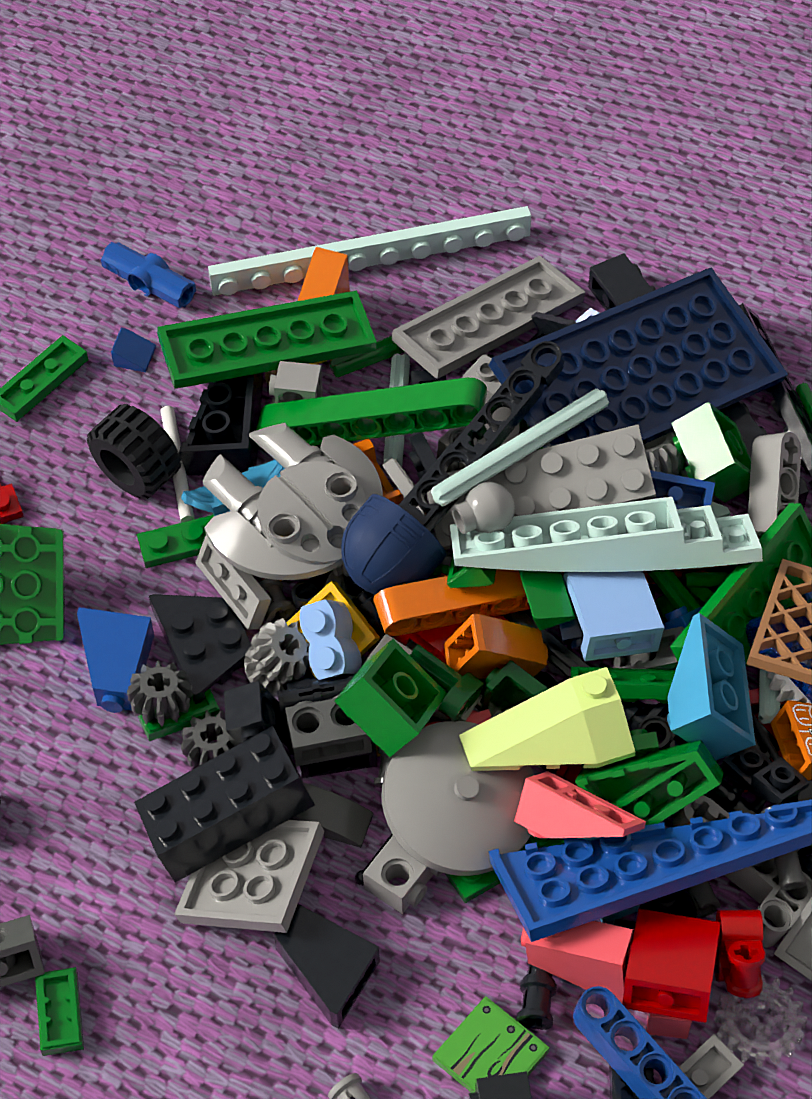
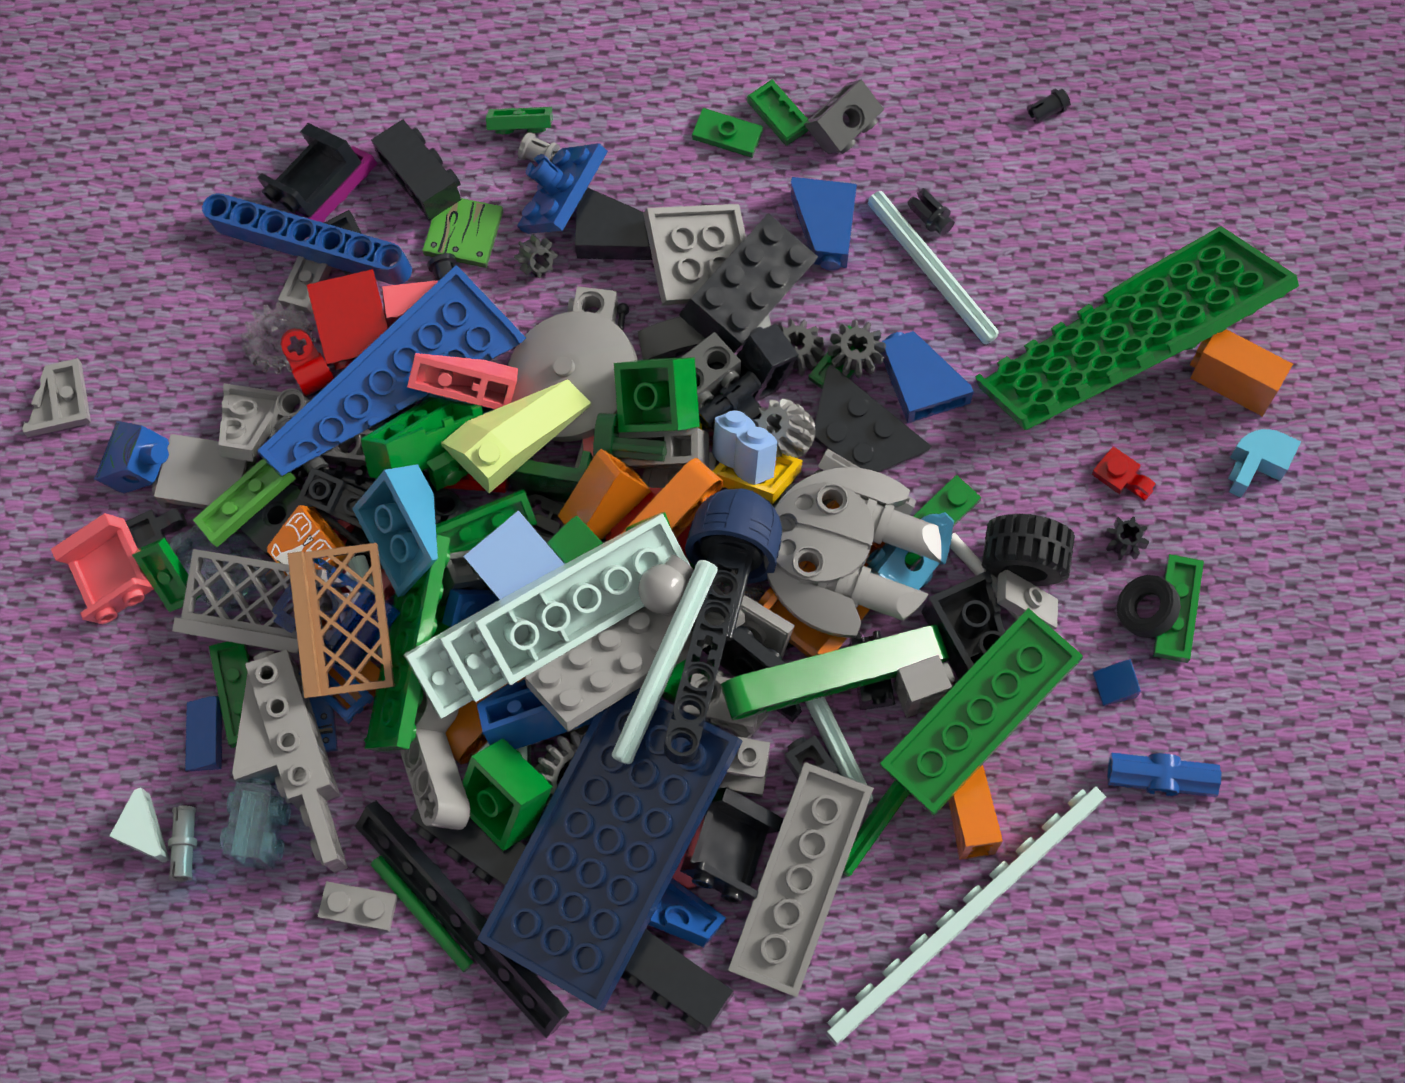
camera: 155 degrees right, 15 degrees up
(23, 767) = (933, 268): none -> light aqua axle
(38, 443) = (1124, 546): none -> black gear
(47, 393) = (1164, 617): none -> black tyre
(93, 856) = (825, 218): none -> blue slope
(129, 1021) = (727, 132): none -> green plate
(171, 420) = (1019, 595): none -> light grey plate
(355, 1025) = (559, 186): none -> blue plate
(426, 969) = (529, 250): none -> dark grey gear

